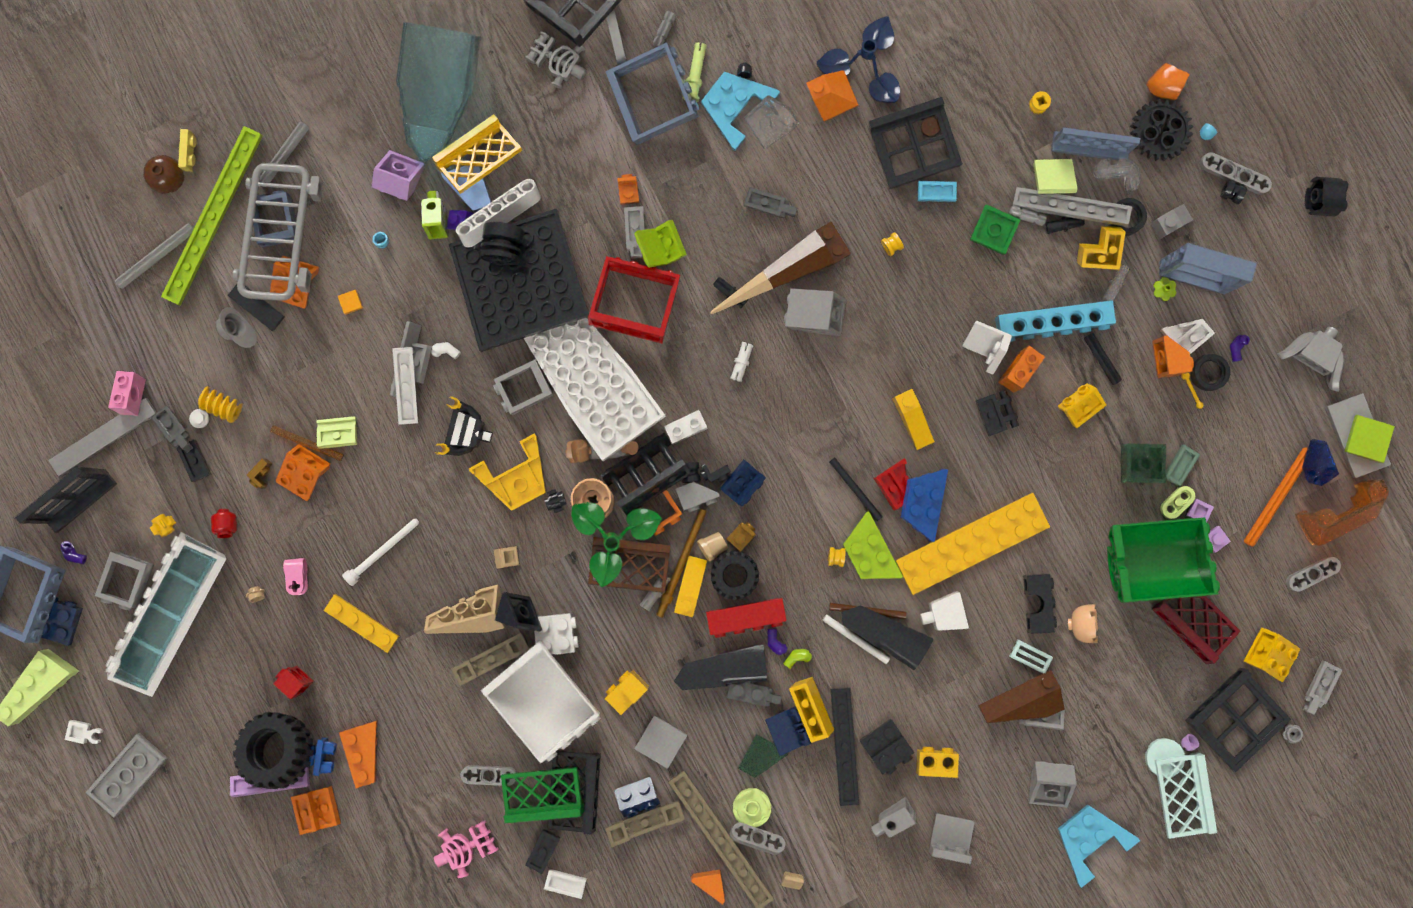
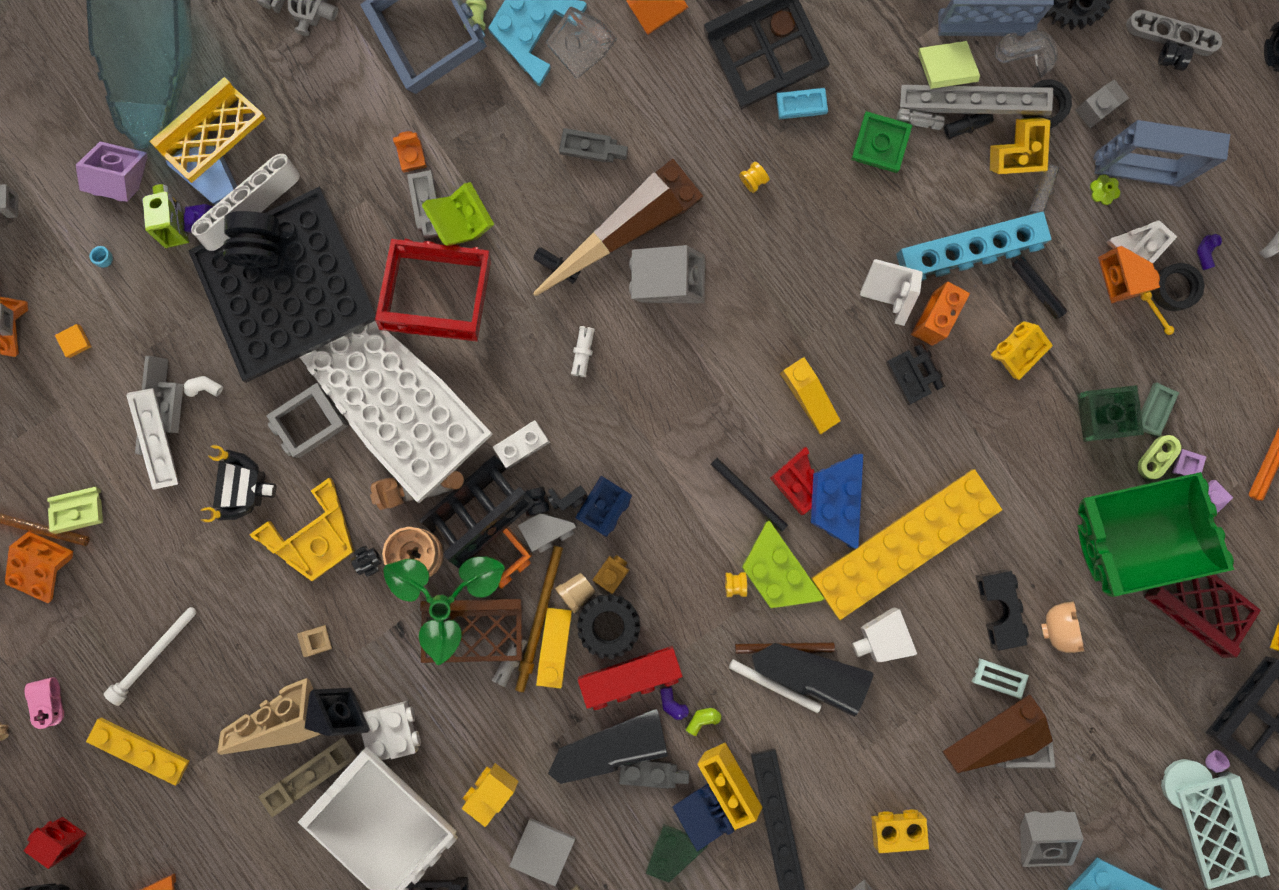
camera: 15 degrees left, 0 degrees up
(887, 747) = (833, 820): black plate -> none

